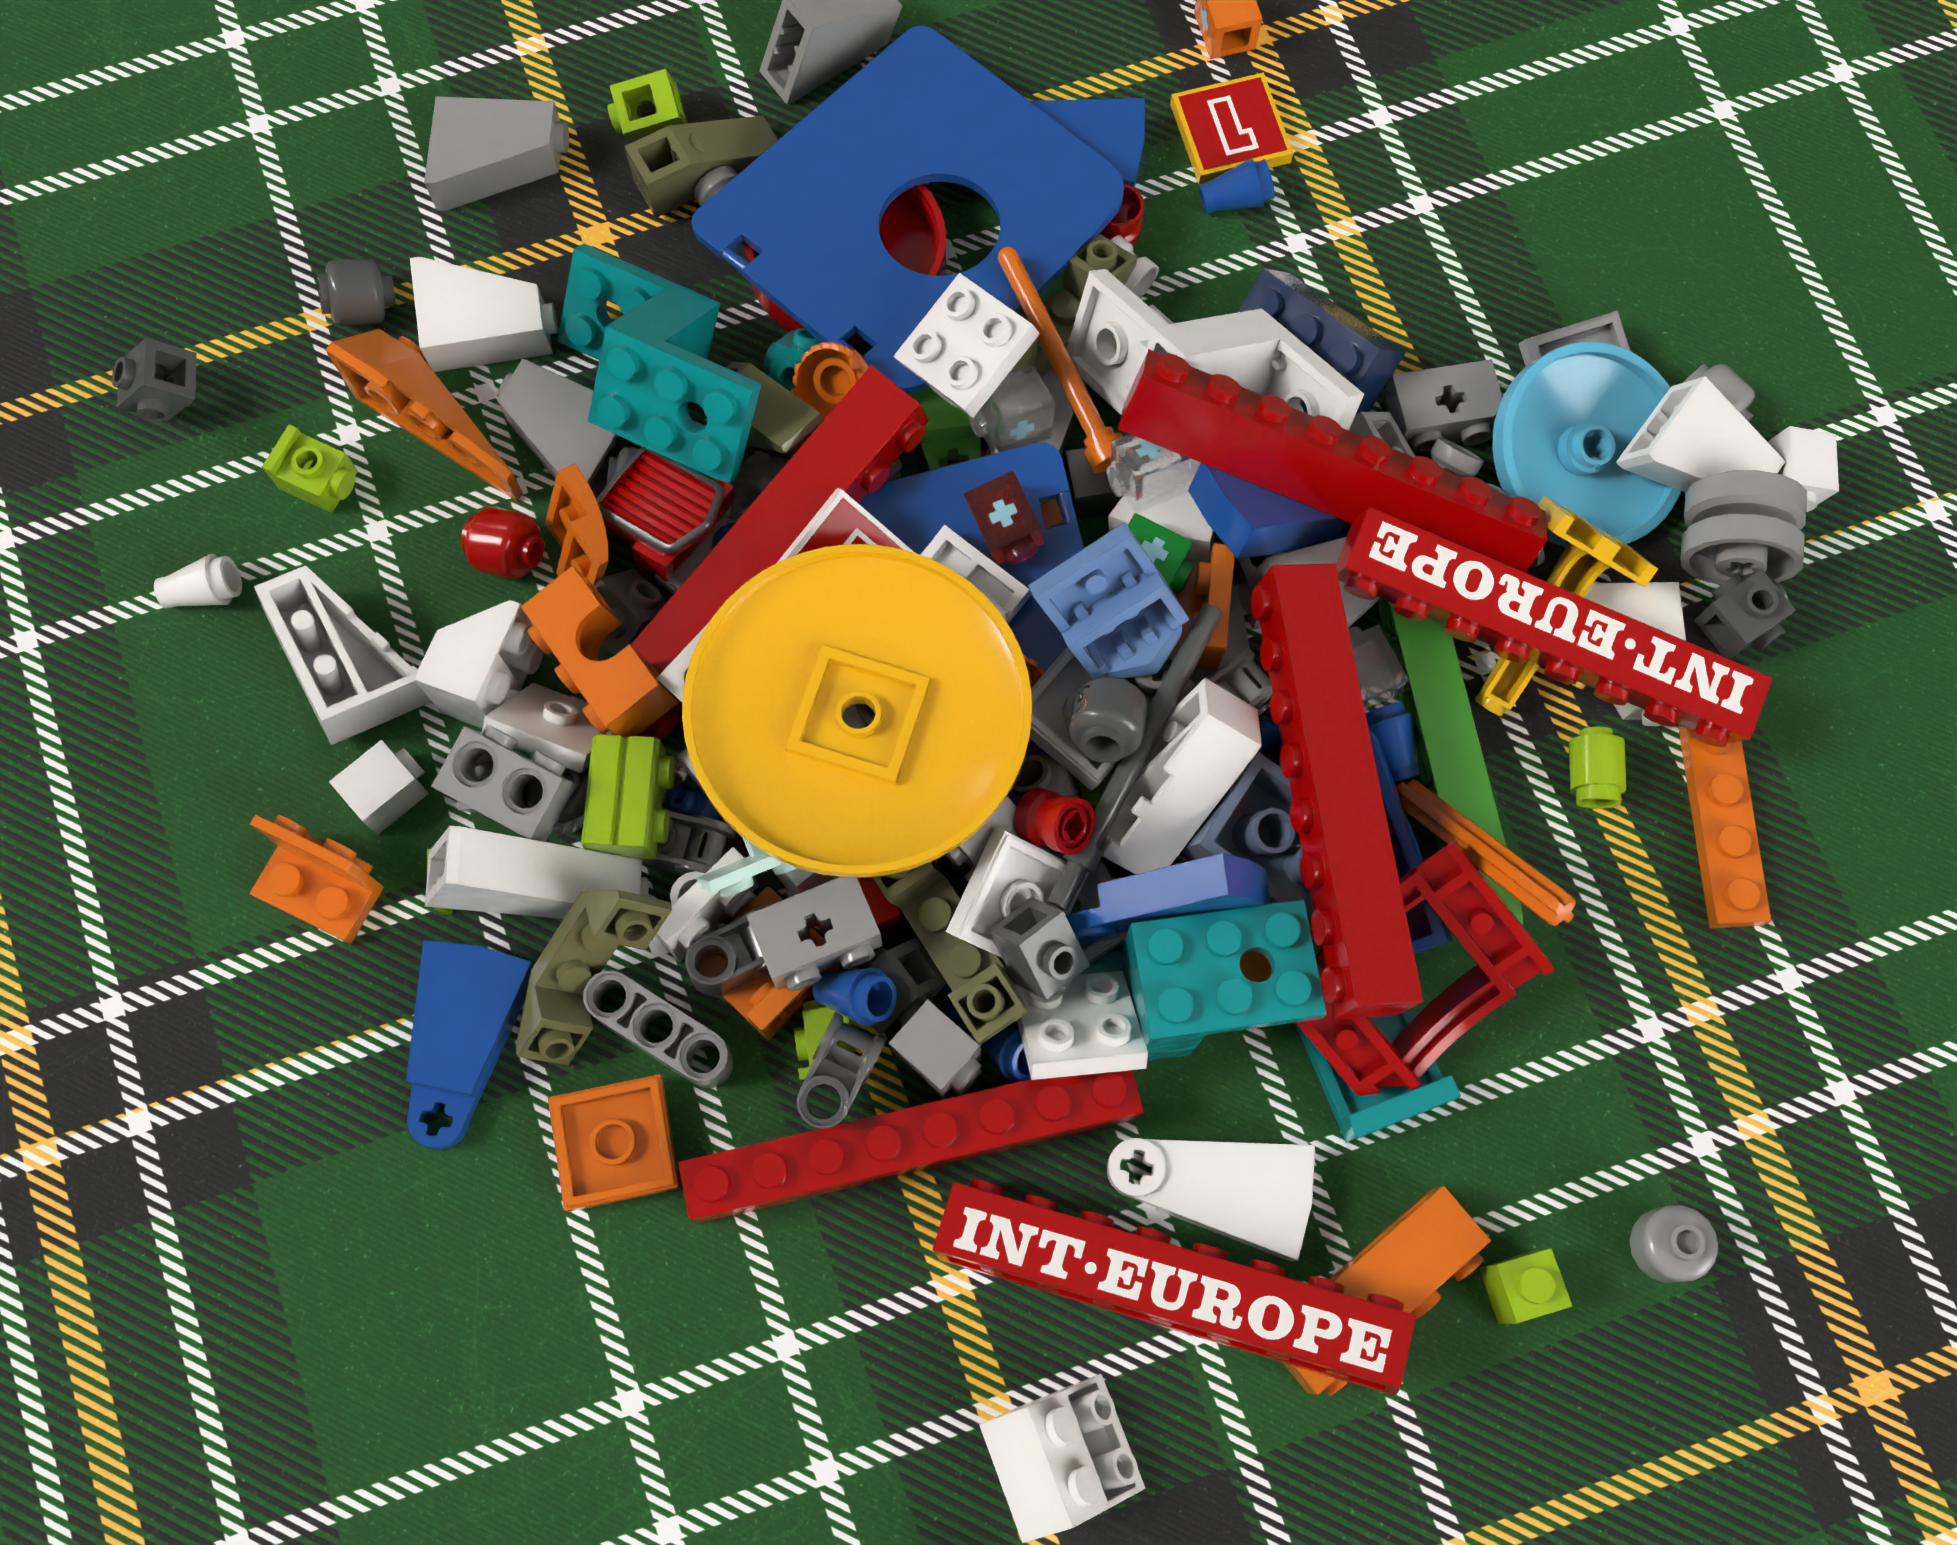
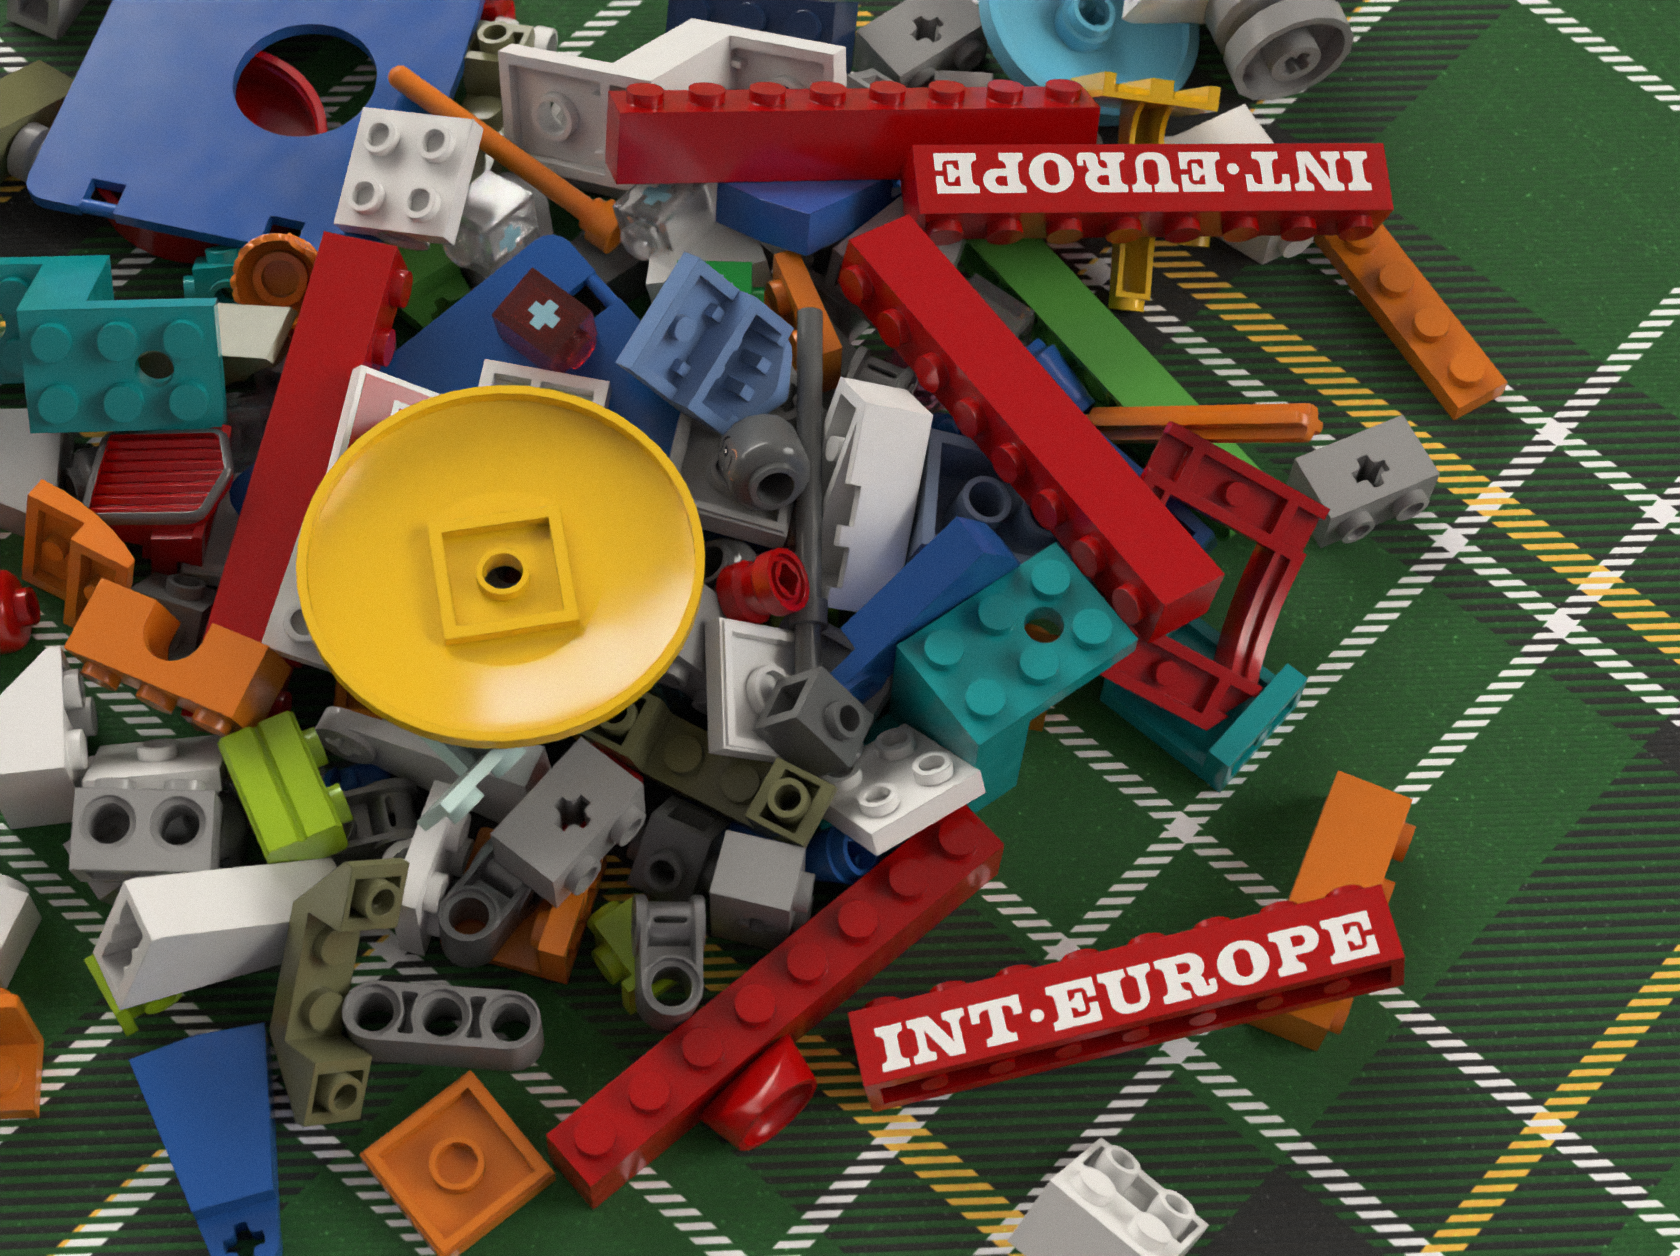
camera: 30 degrees left, 10 degrees down
(857, 994) = (648, 866): blue cone -> none
(857, 1210) = (762, 1097): none -> red piece
(1230, 1188) = (1134, 883): white piece -> none
(1525, 1287) = (1468, 831): lime brick -> none
(1597, 768) = (1264, 316): lime brick -> none
(1629, 936) = (1366, 480): none -> light grey brick
(1674, 1244) = (1585, 720): light grey head -> none
(1745, 614) = (1324, 104): dark grey brick -> none

